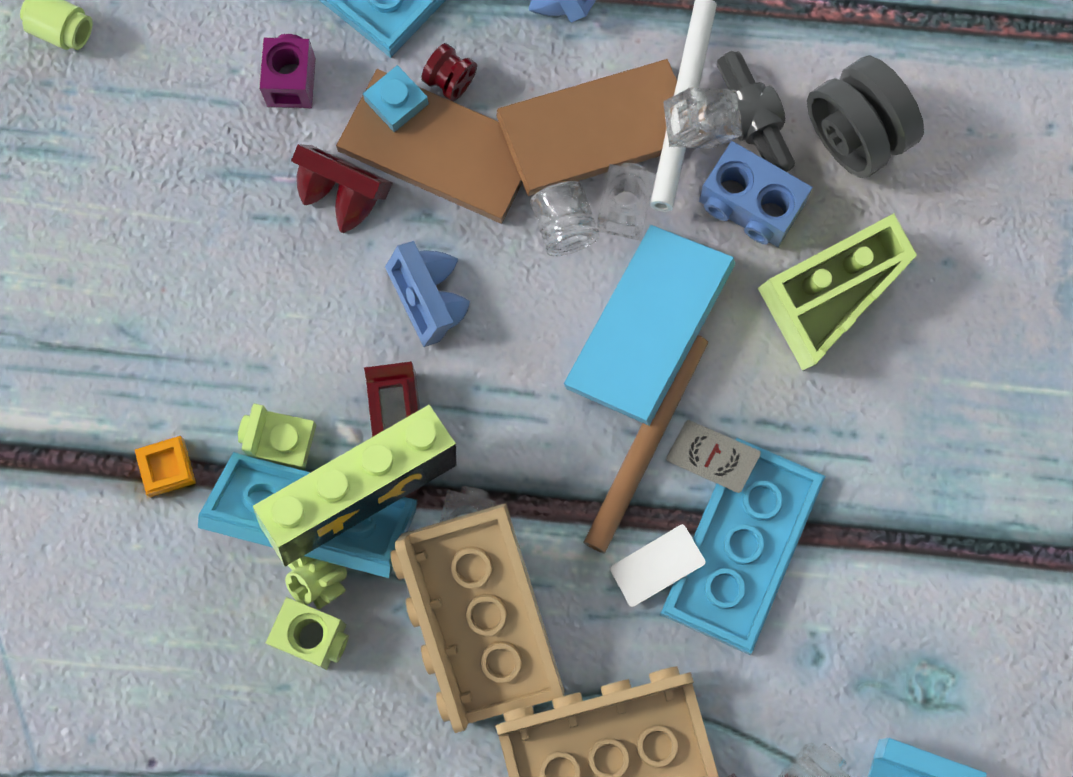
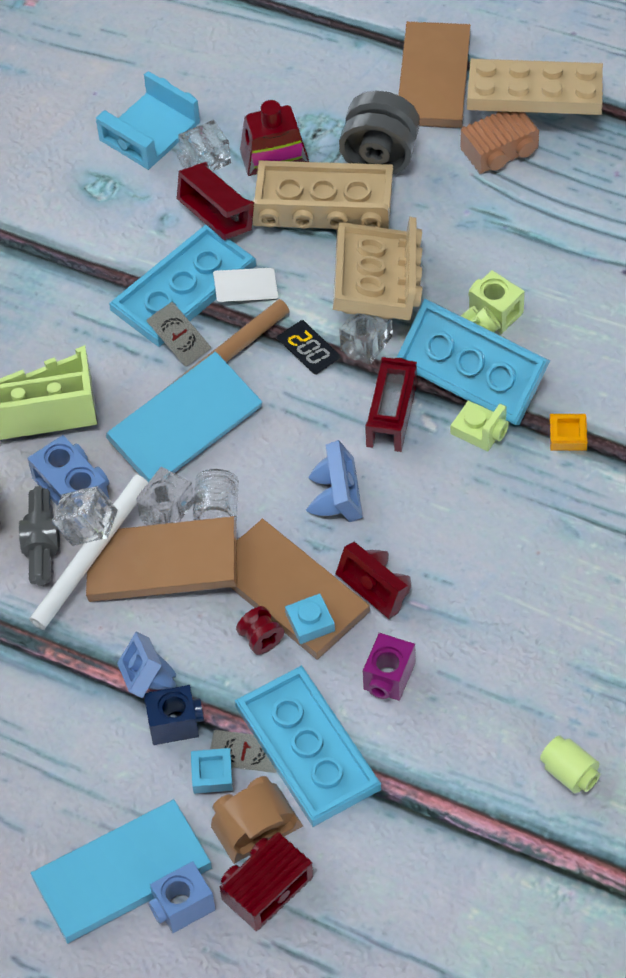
camera: 160 degrees left, 20 degrees down
(356, 485) = (430, 337): yellowish green brick -> none
(540, 500) = (308, 347): none -> black sticker
(754, 682) = (214, 201): none -> dark red window

